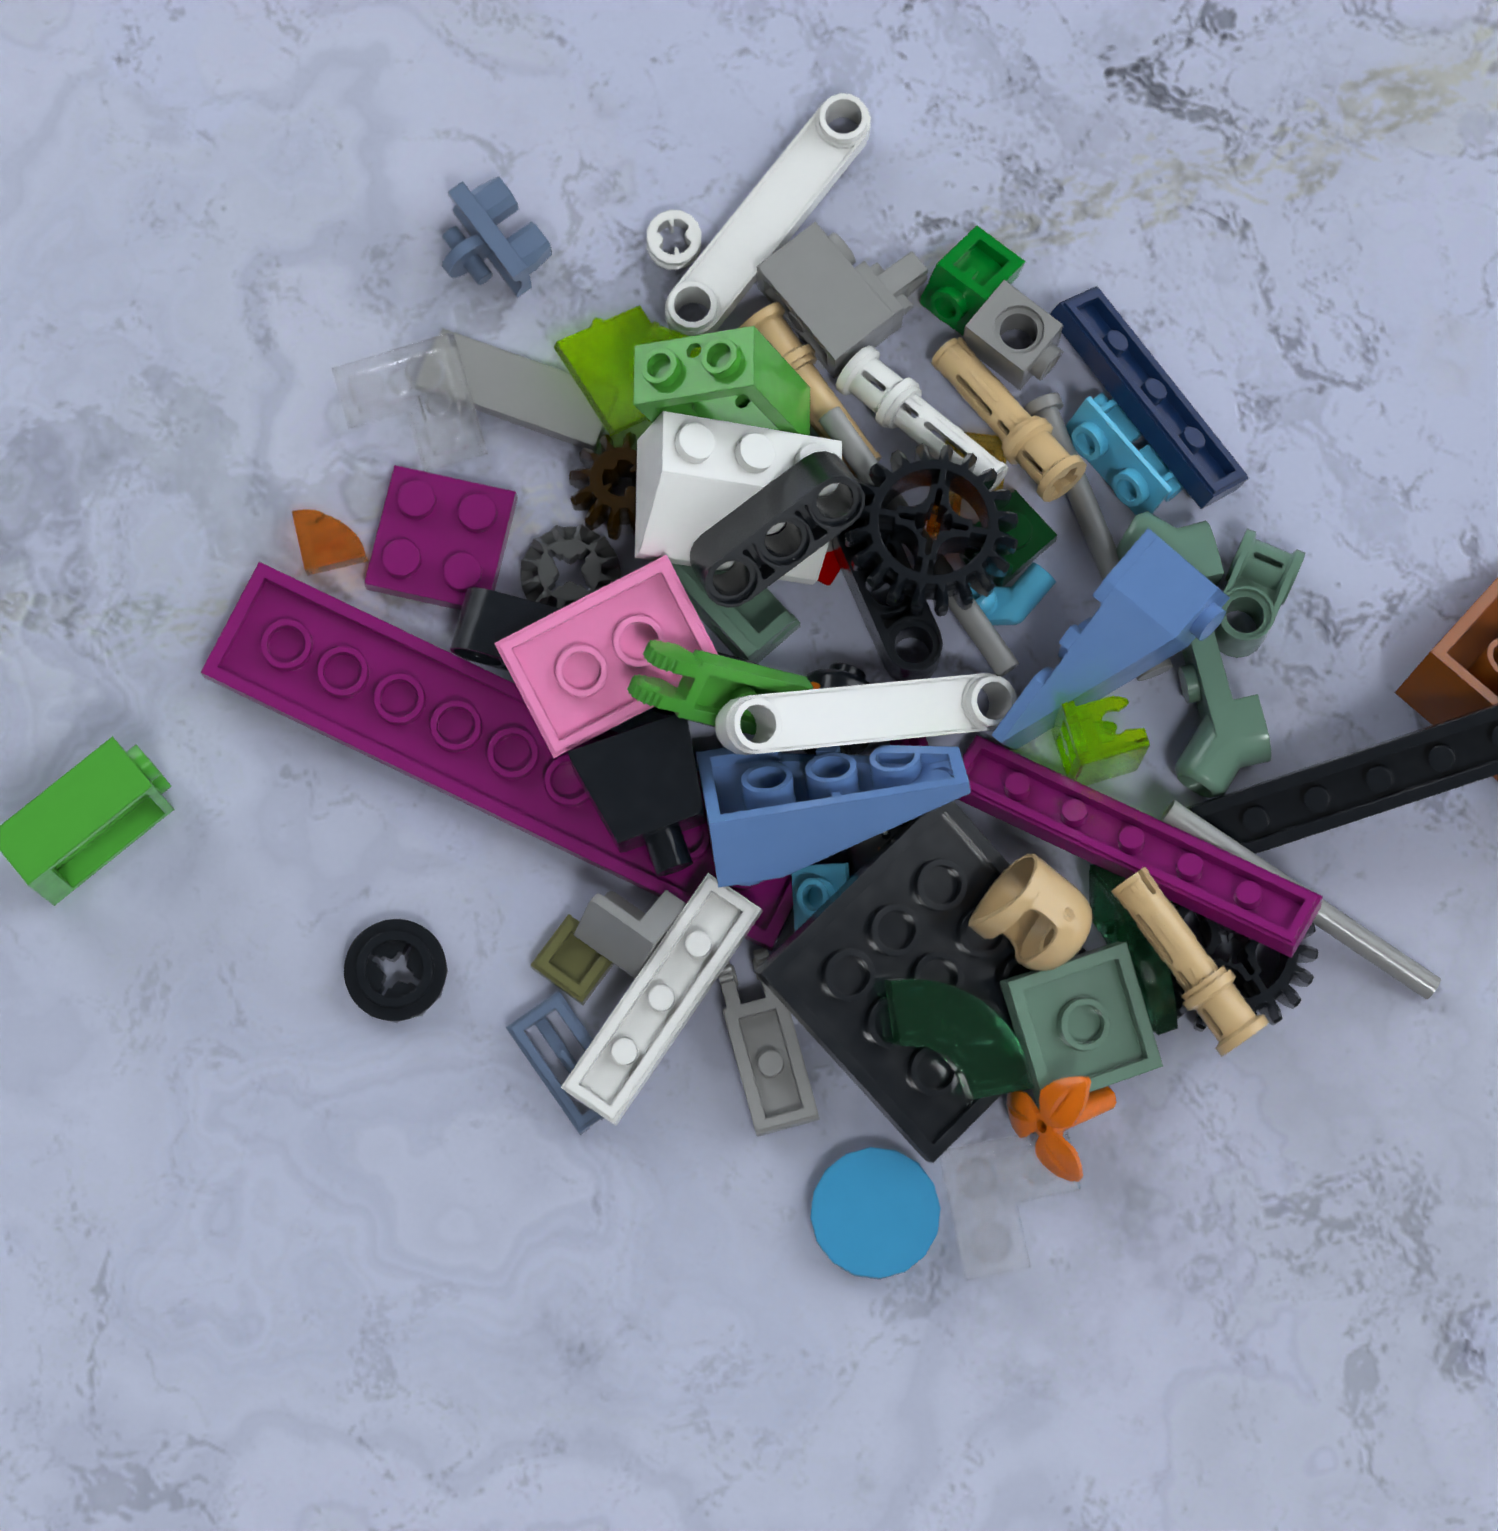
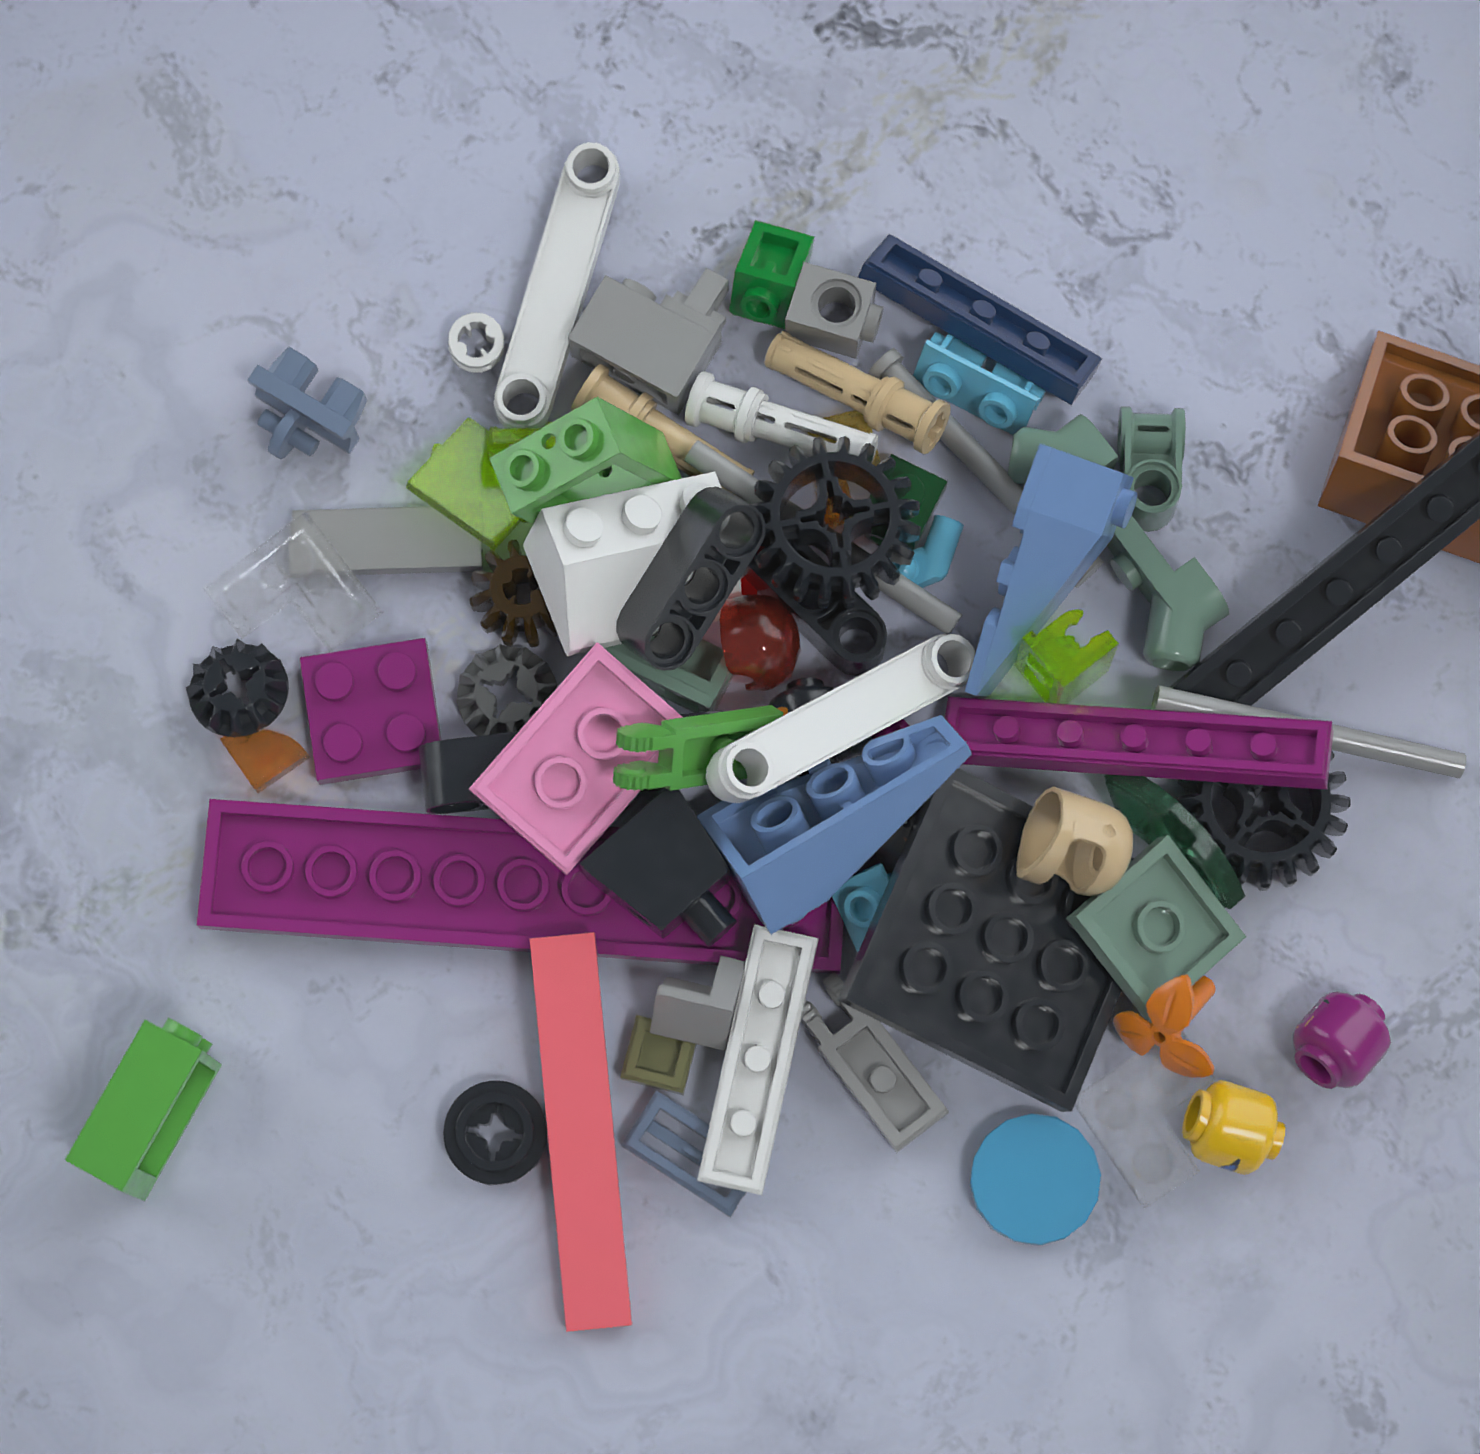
camera: 20 degrees left, 0 degrees up
(350, 484) = (227, 713): none -> black gear
(472, 1000) = (580, 1132): none -> coral tile
(820, 613) = (759, 640): none -> clear red hair
(962, 1032) = (1049, 978): clear green tile -> none
(1078, 1238) = (1233, 1127): none -> yellow head
(1205, 985) = (1259, 846): tan pin -> none
(1213, 1198) = (1341, 1040): none -> magenta head

